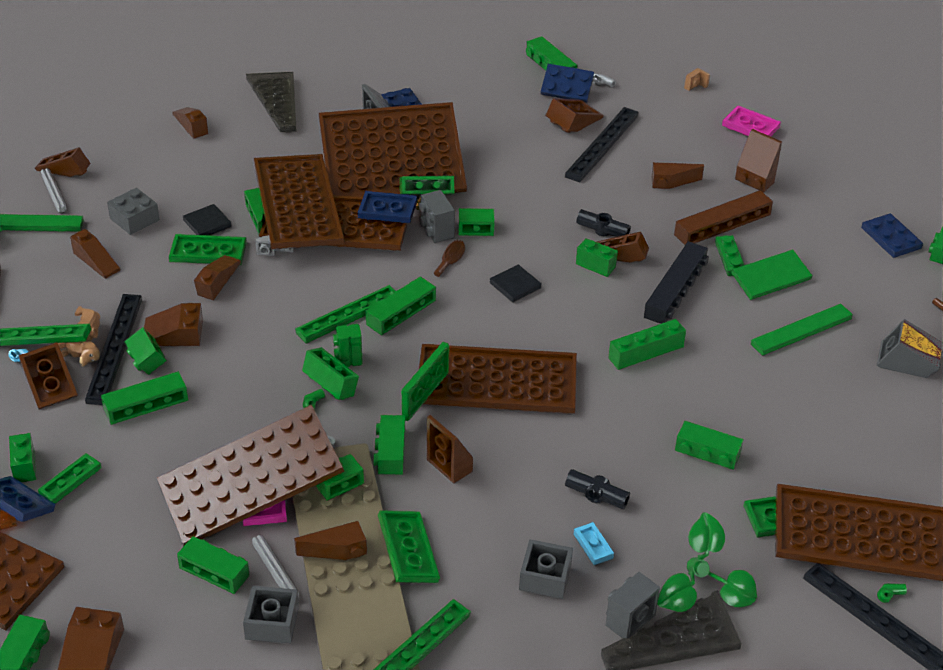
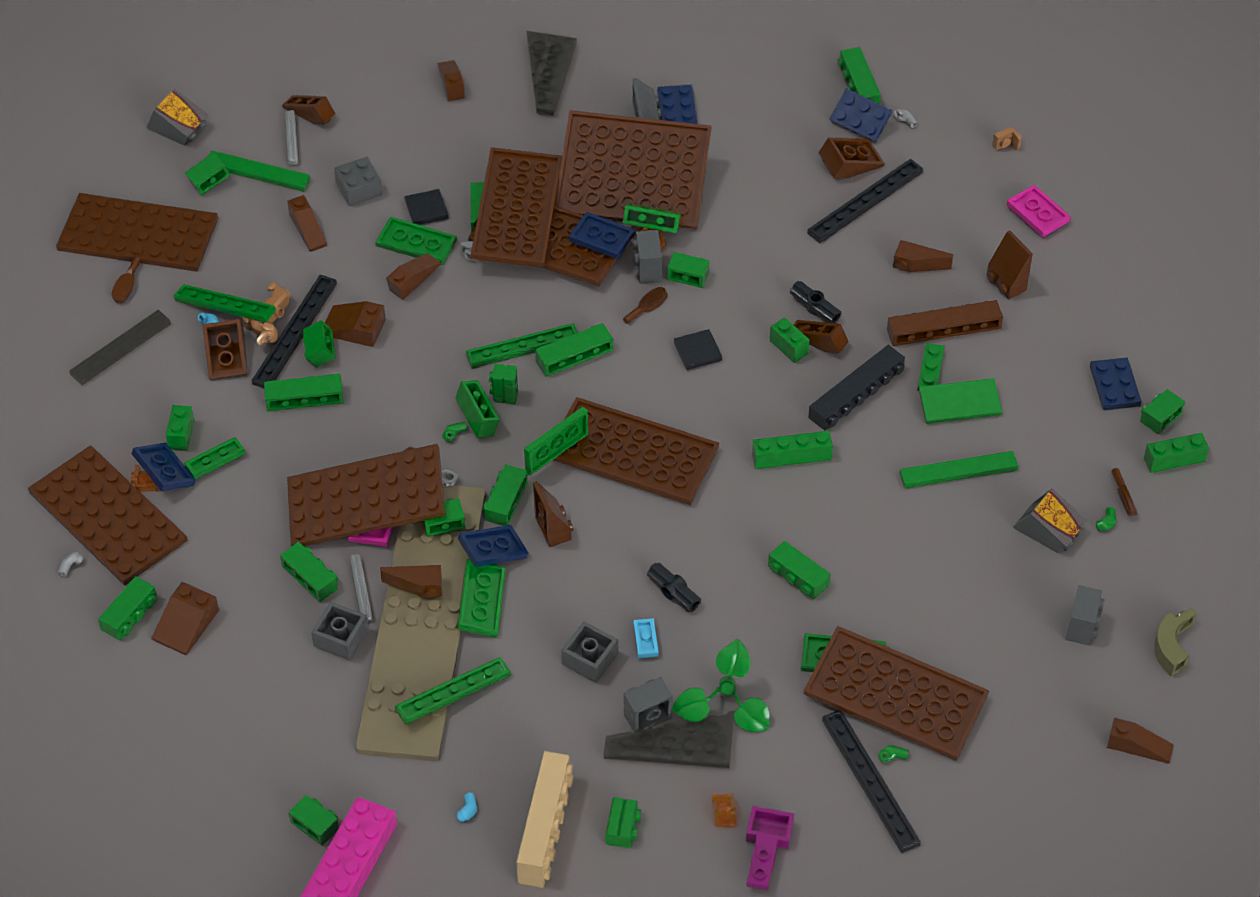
camera: 20 degrees right, 10 degrees up
(400, 492) = (492, 545): none -> dark blue plate

